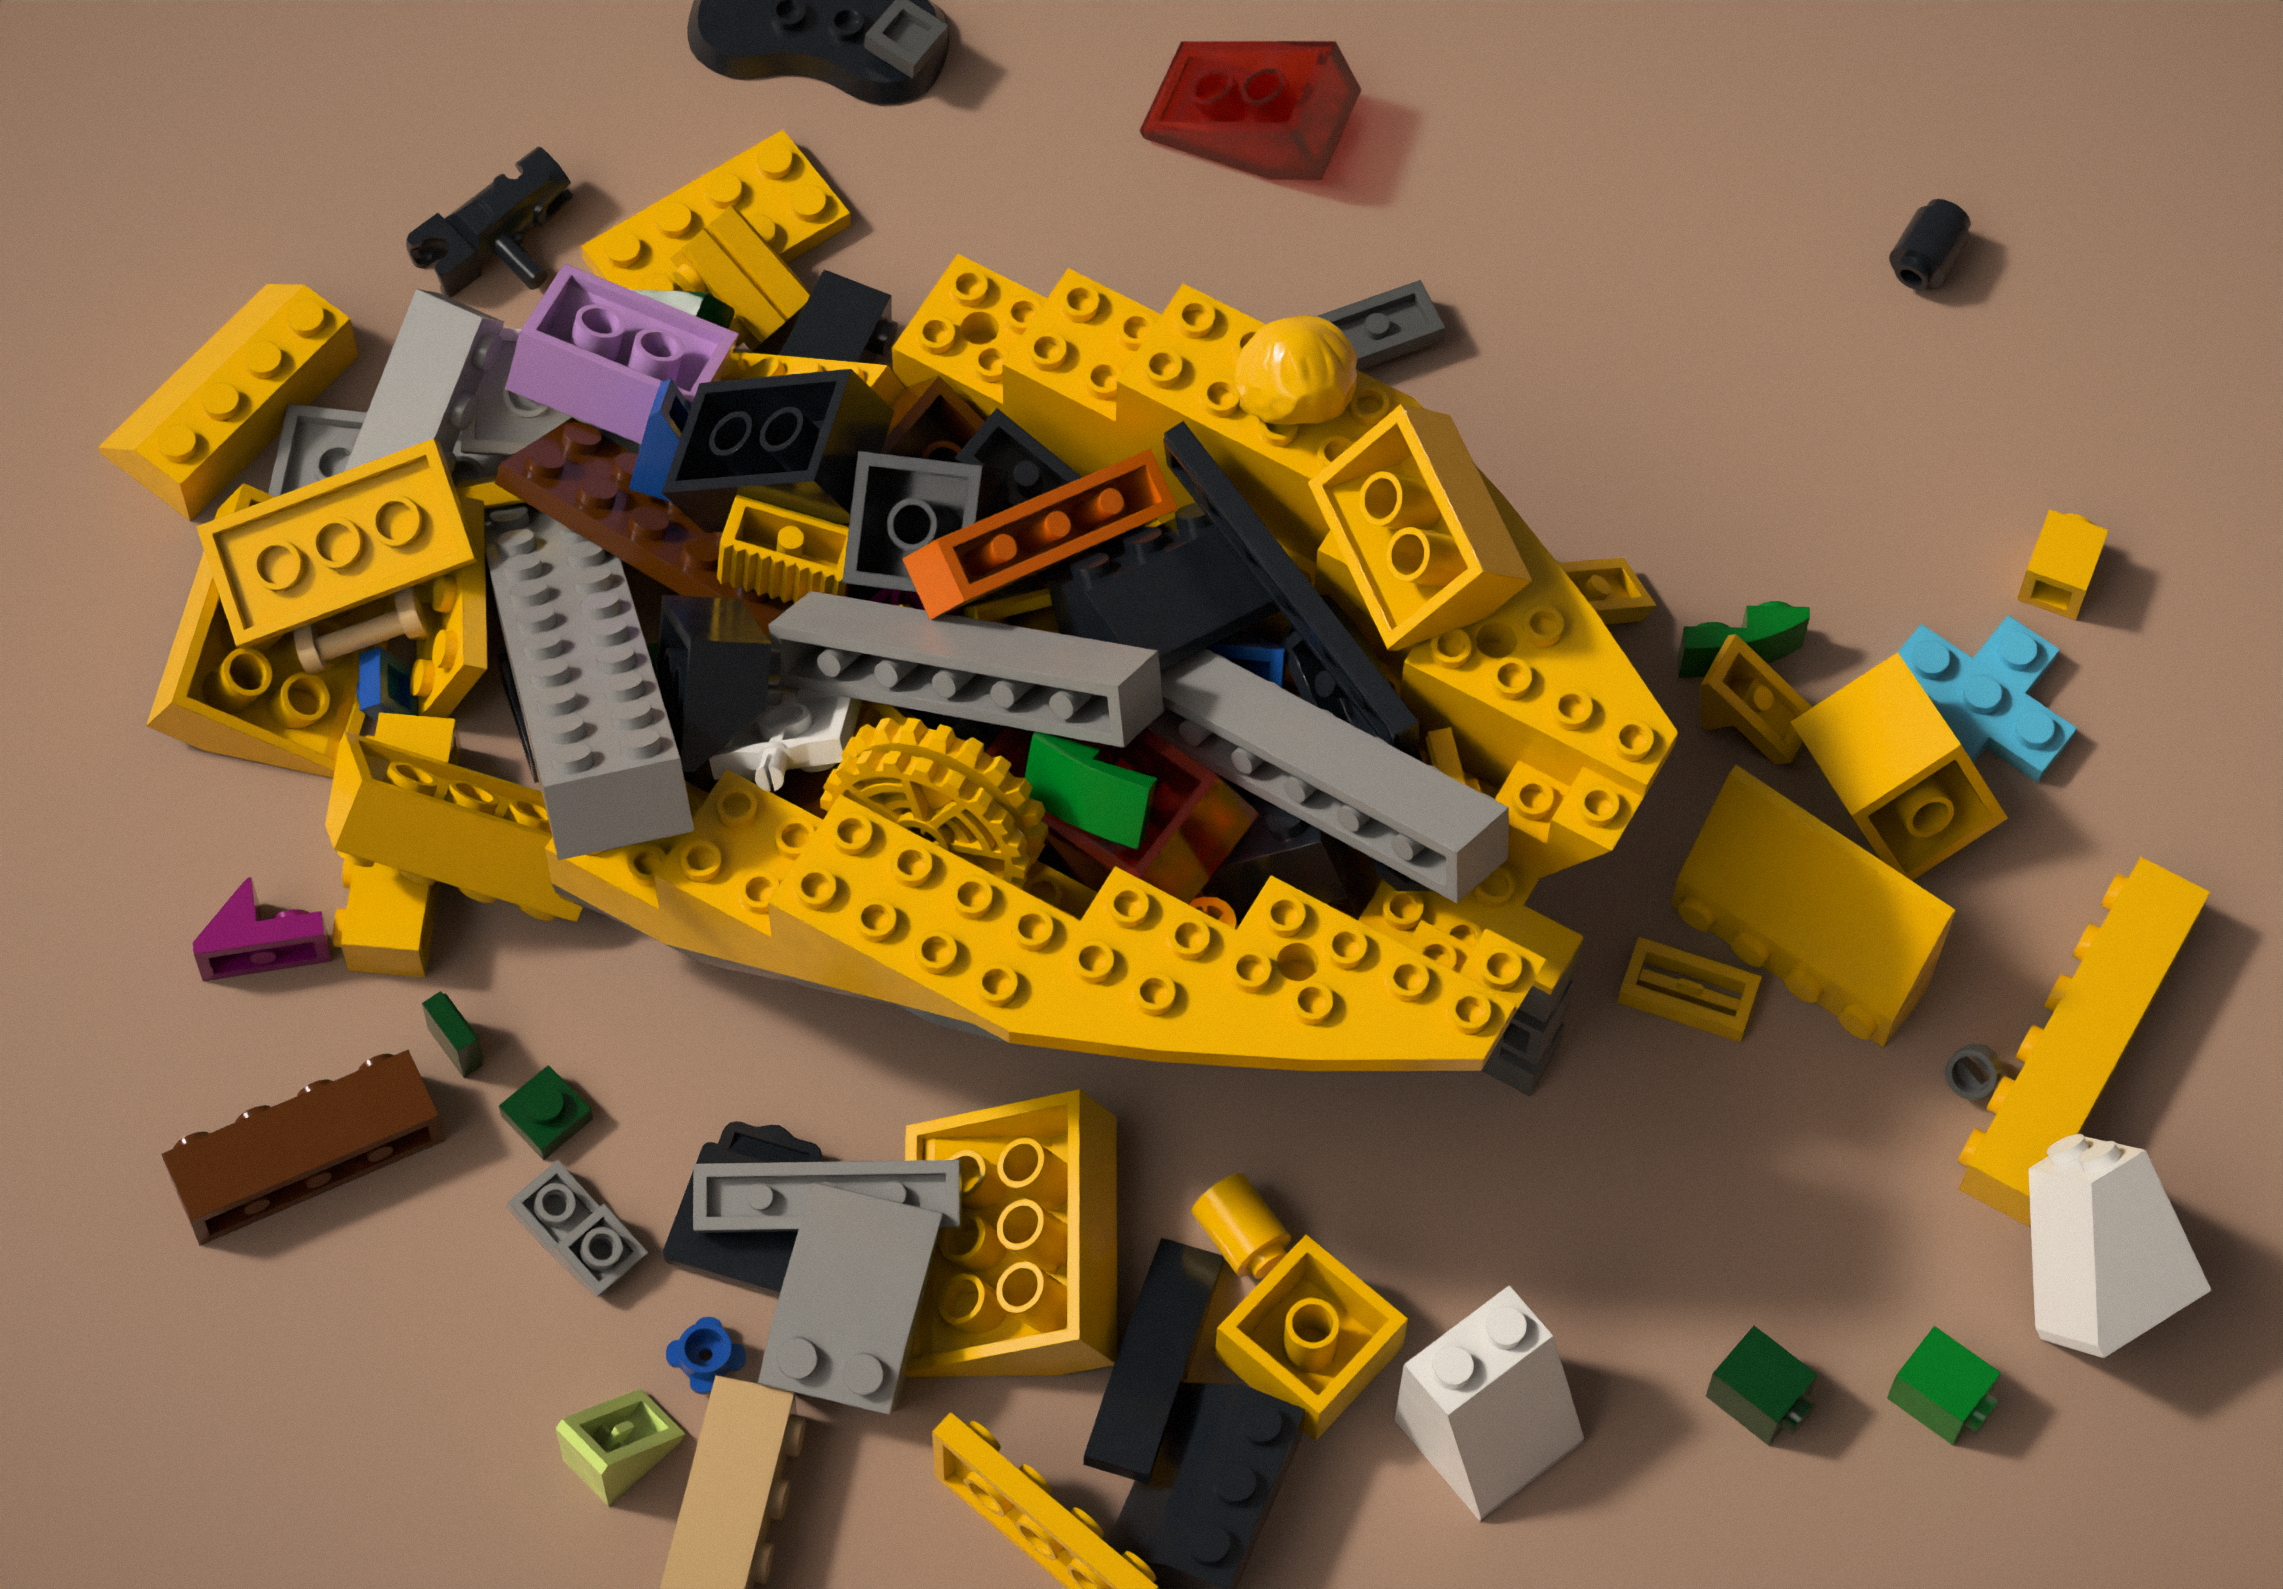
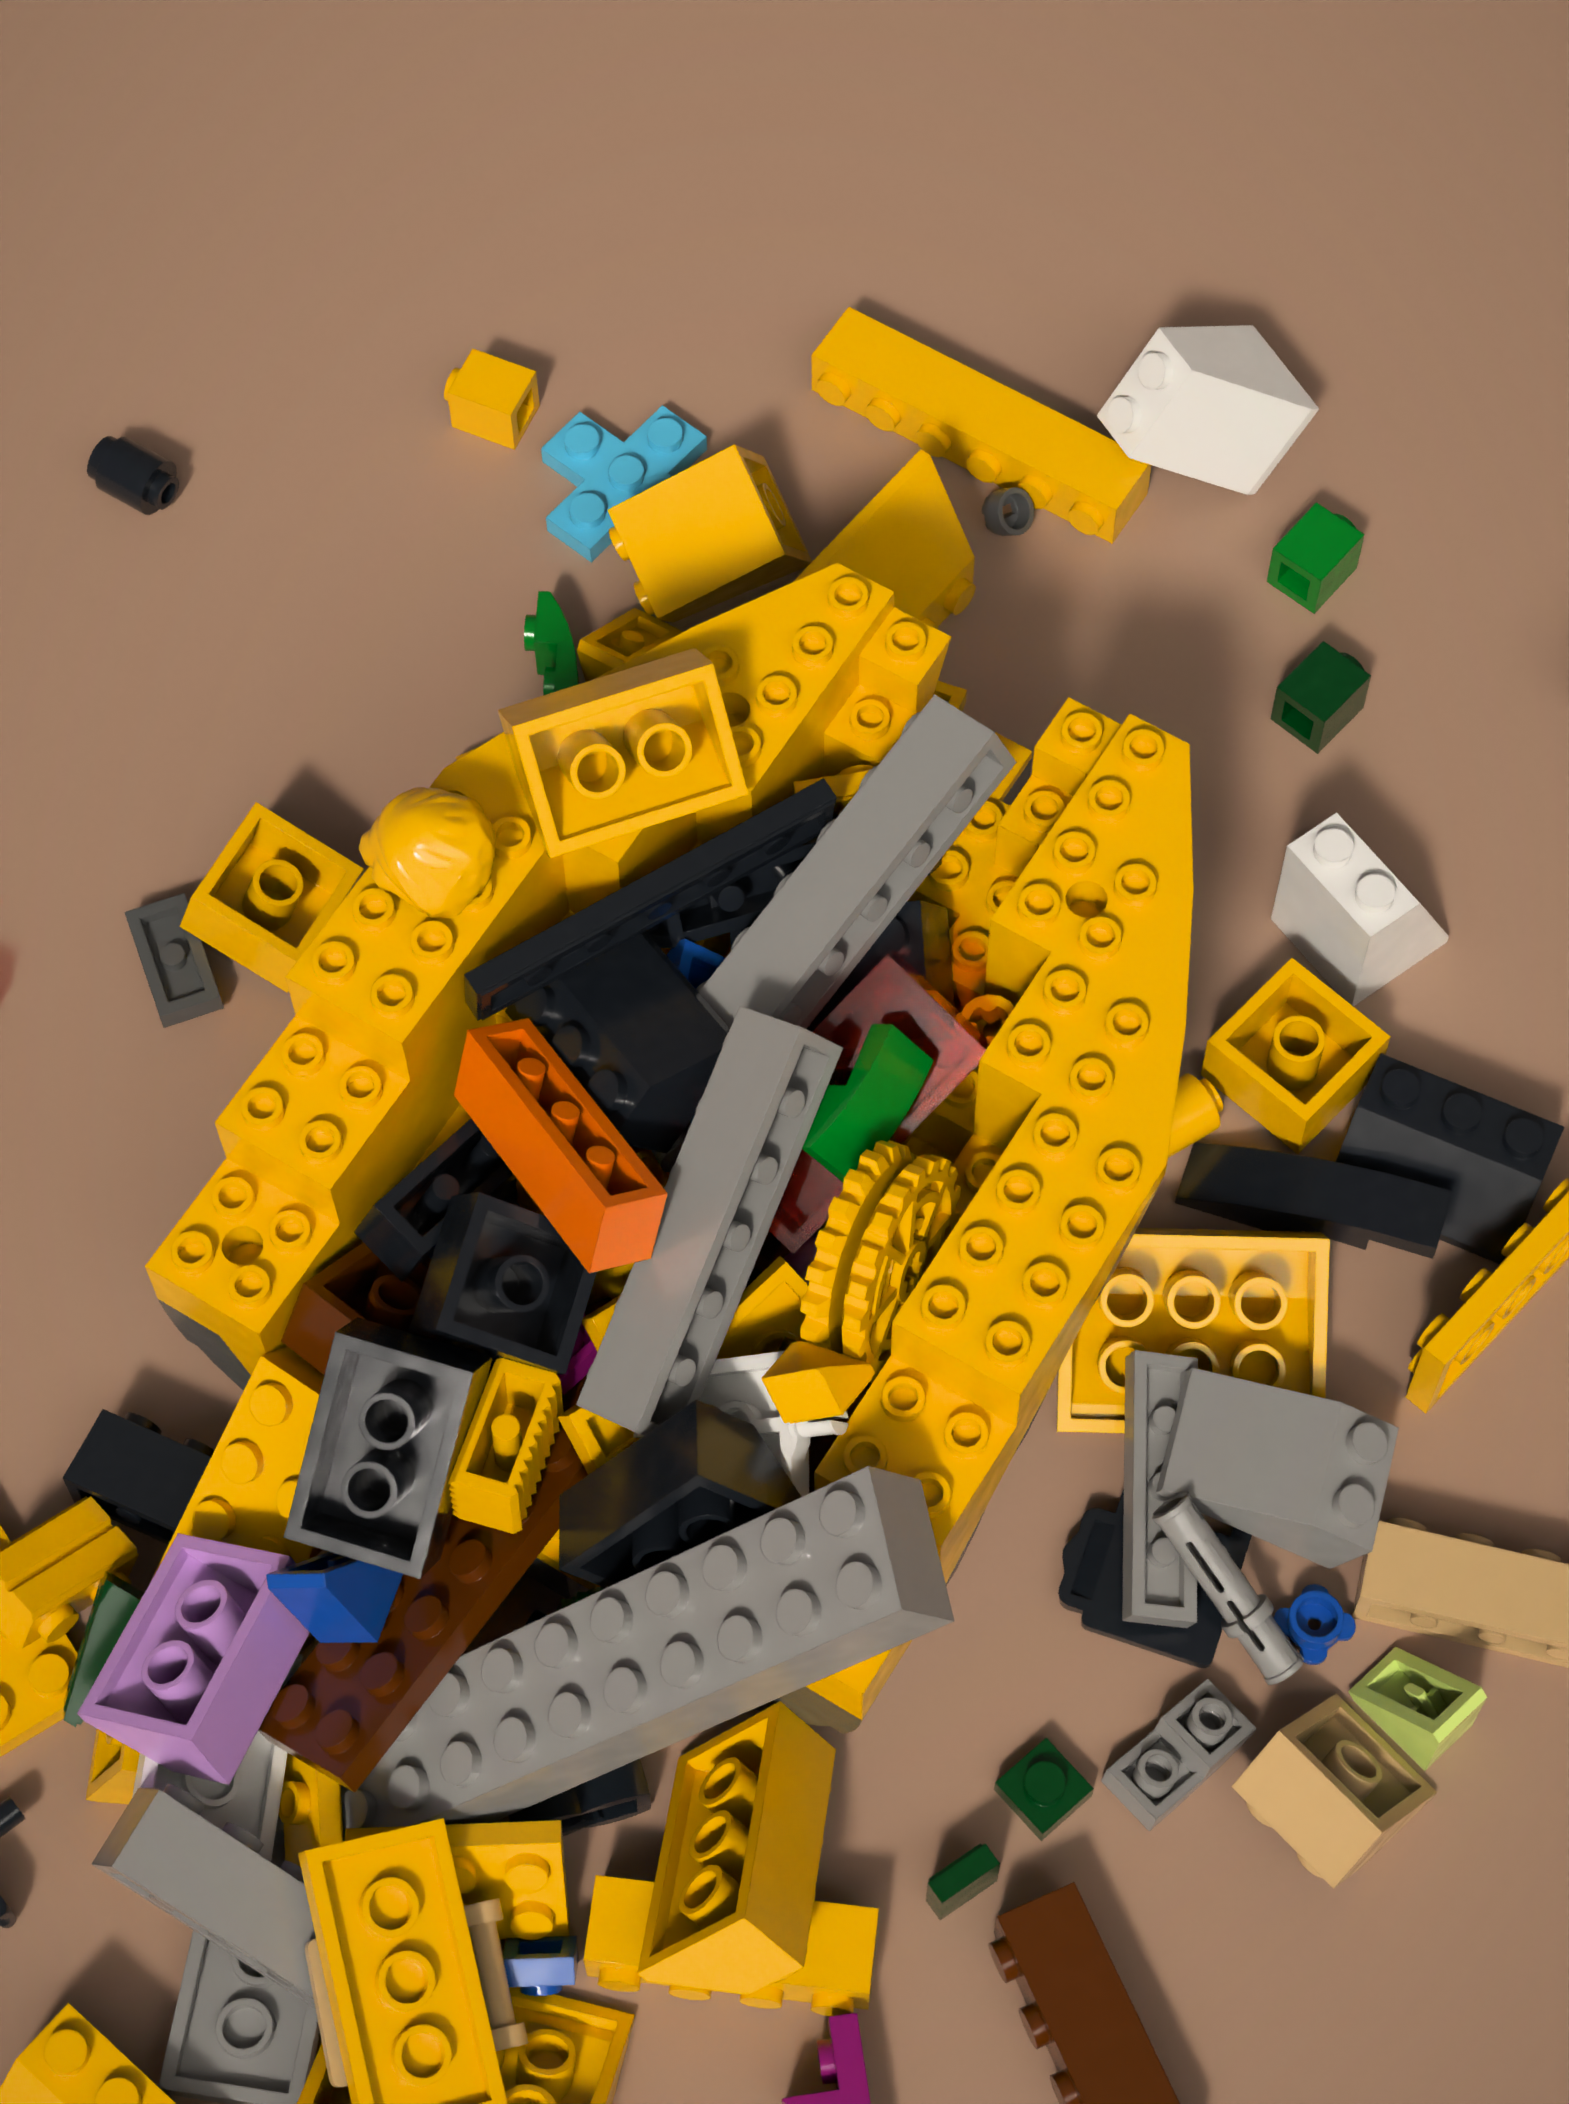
camera: 85 degrees left, 0 degrees up
(535, 1360) = (1332, 1790): none -> tan slope
(705, 1276) = (1244, 1612): none -> light grey pin
(801, 751) = (815, 1382): none -> yellow slope
(1447, 372) = (269, 895): none -> yellow brick

